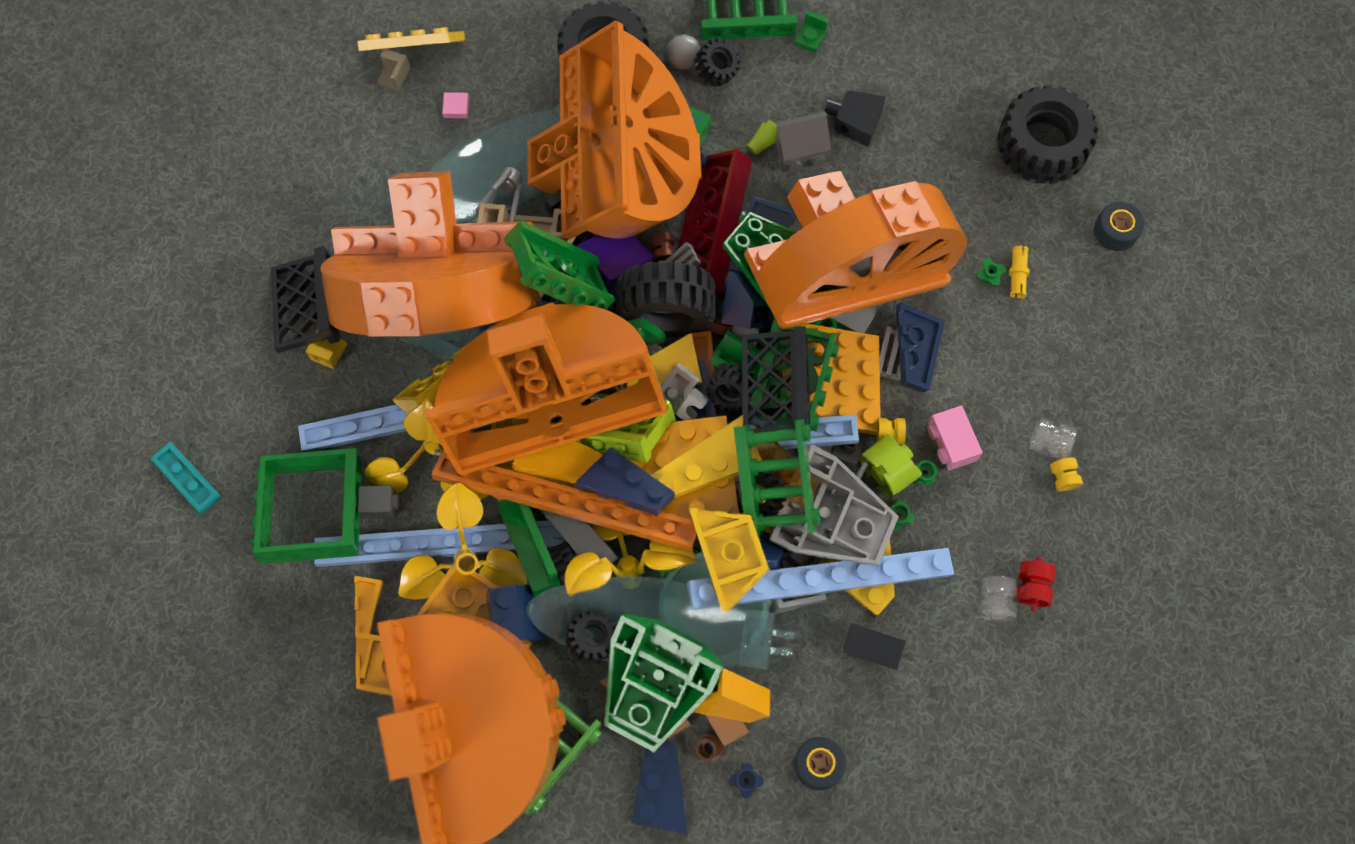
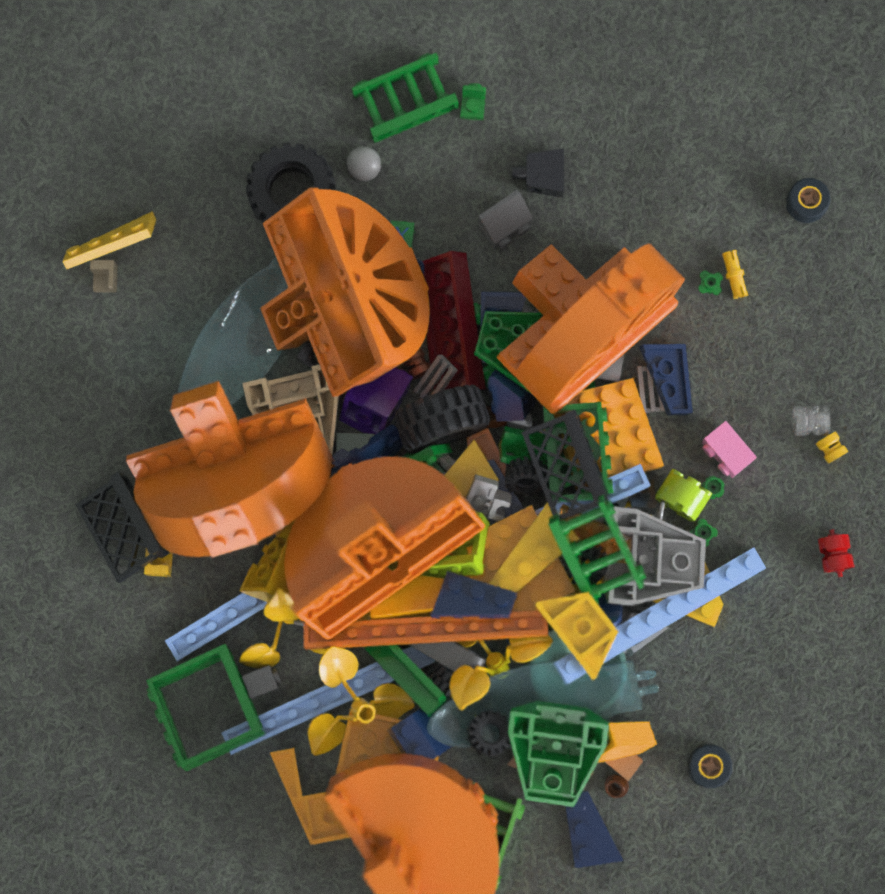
camera: 15 degrees left, 10 degrees up
(185, 478) = (86, 719): teal tile -> none
(455, 105) = (175, 288): bright pink tile -> none
(507, 183) = (256, 352): light grey plant -> none
(541, 252) = (357, 417): green fence -> none
(726, 53) = (391, 173): black tyre -> none
(754, 780) = (657, 807): dark blue plate -> none
(763, 138) = (467, 224): lime cone -> none
(874, 646) = (720, 653): black hinge -> none
(895, 428) = (673, 460): yellow wheel -> none
(998, 600) = (809, 577): clear wheel -> none
(1055, 108) = (725, 106): black tyre -> none

